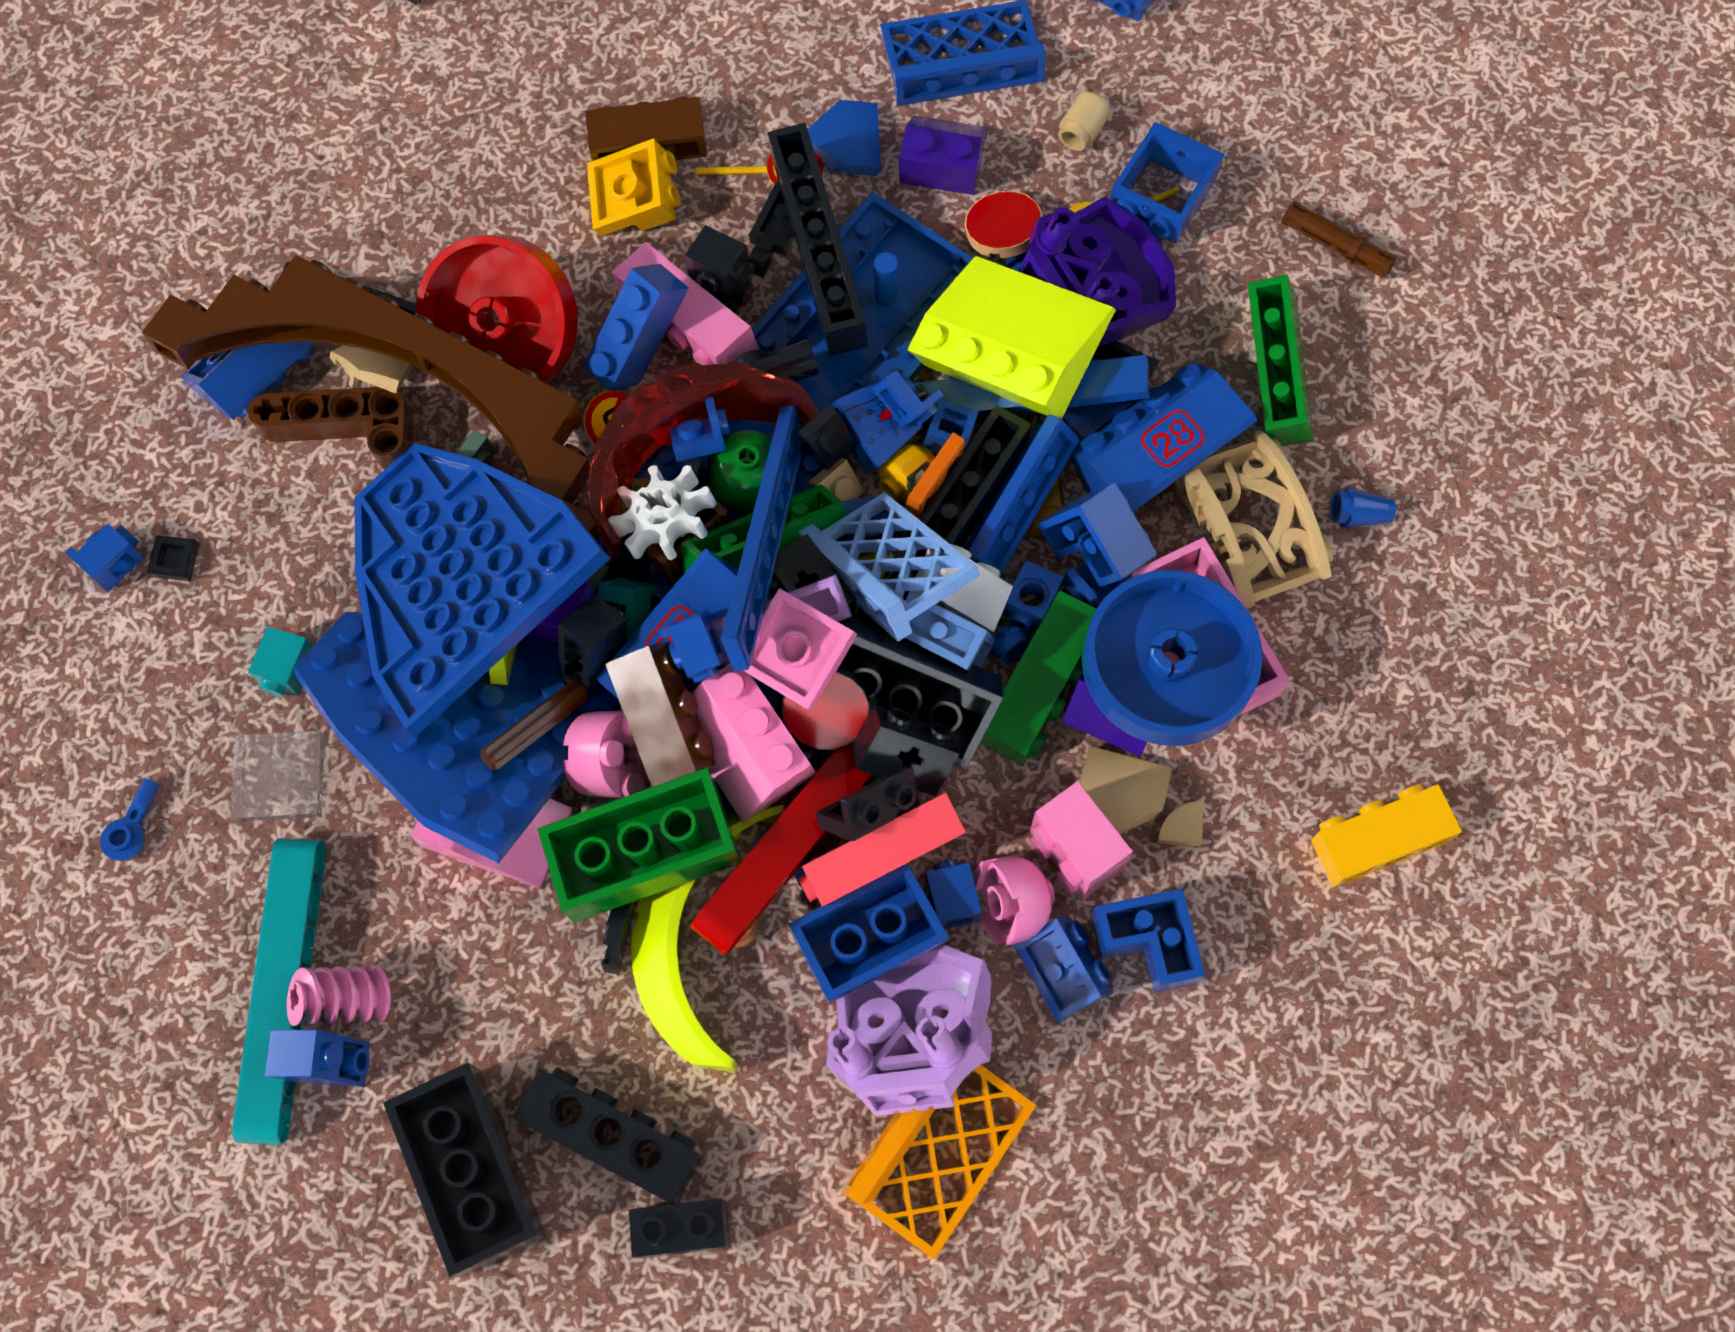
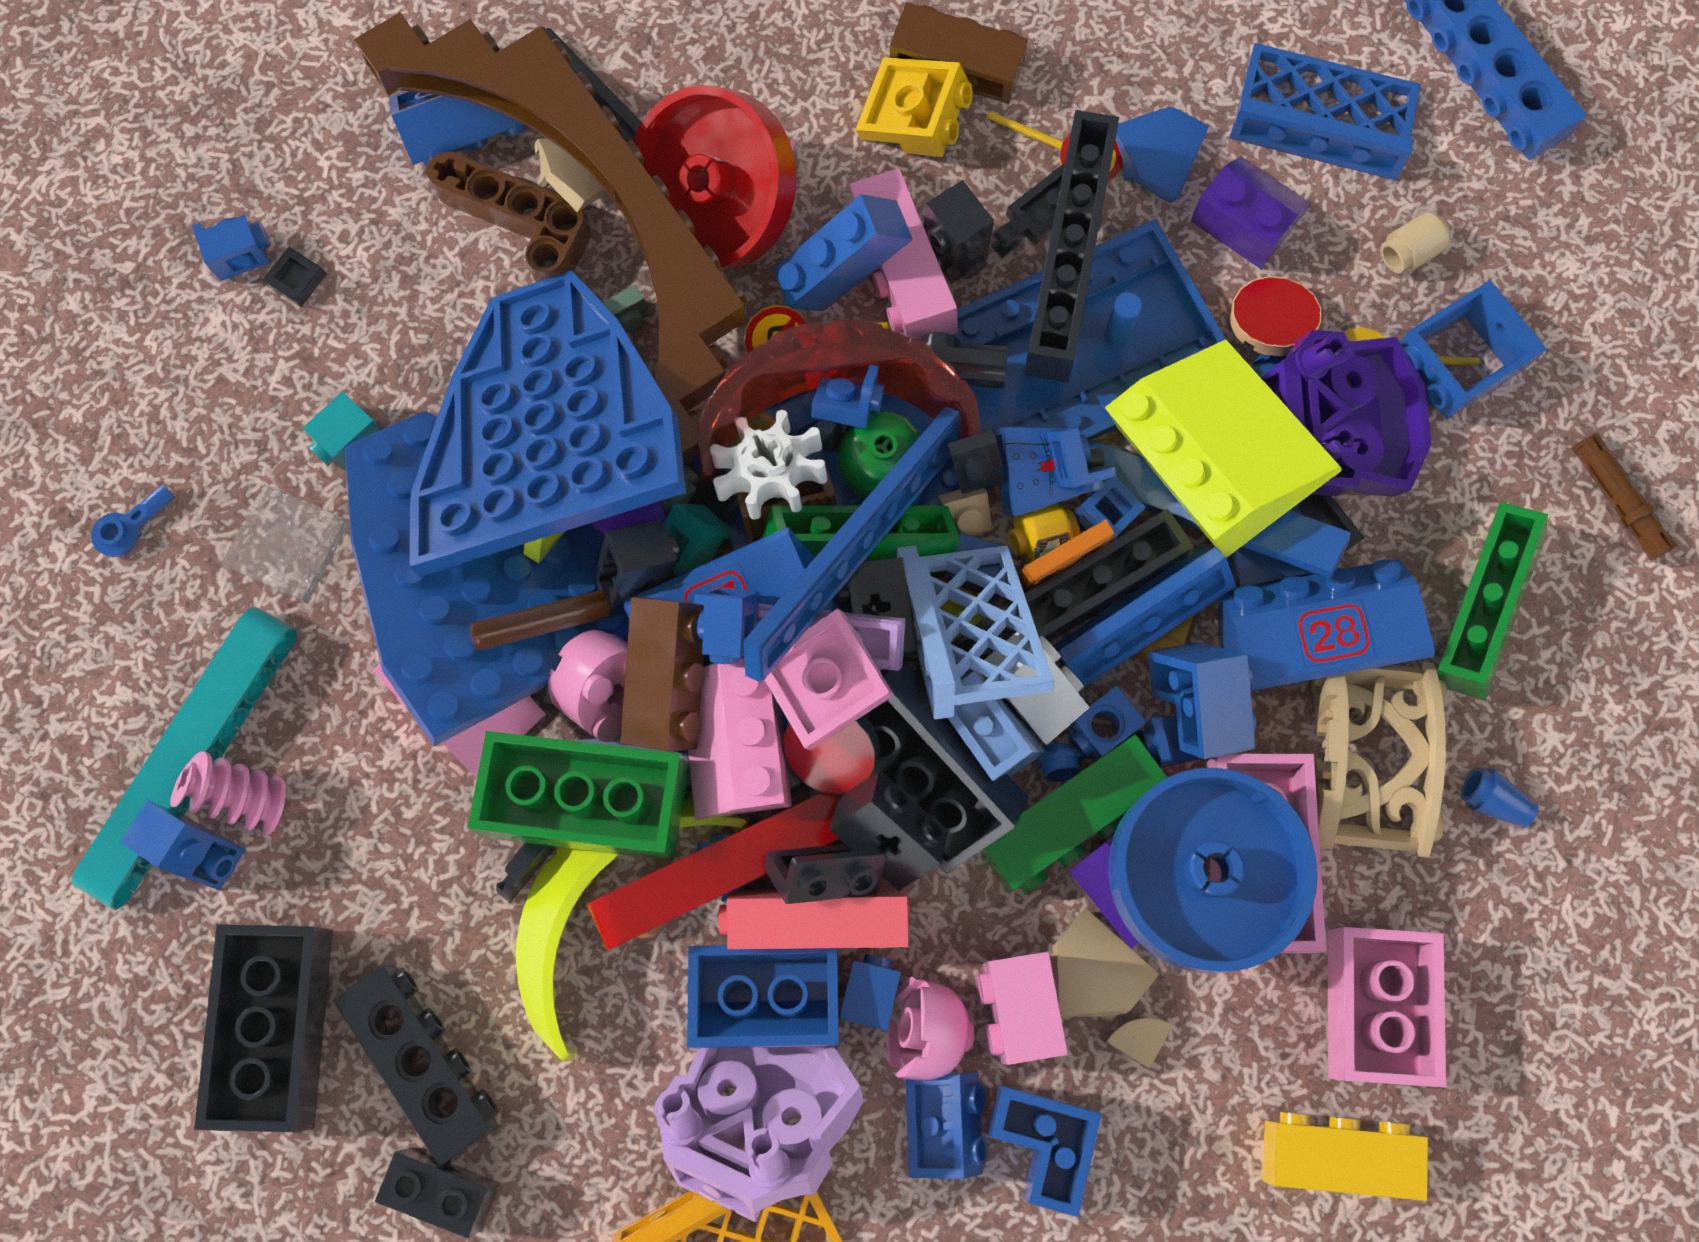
camera: 25 degrees right, 5 degrees up
(1357, 703) = (1386, 1006): none -> bright pink brick

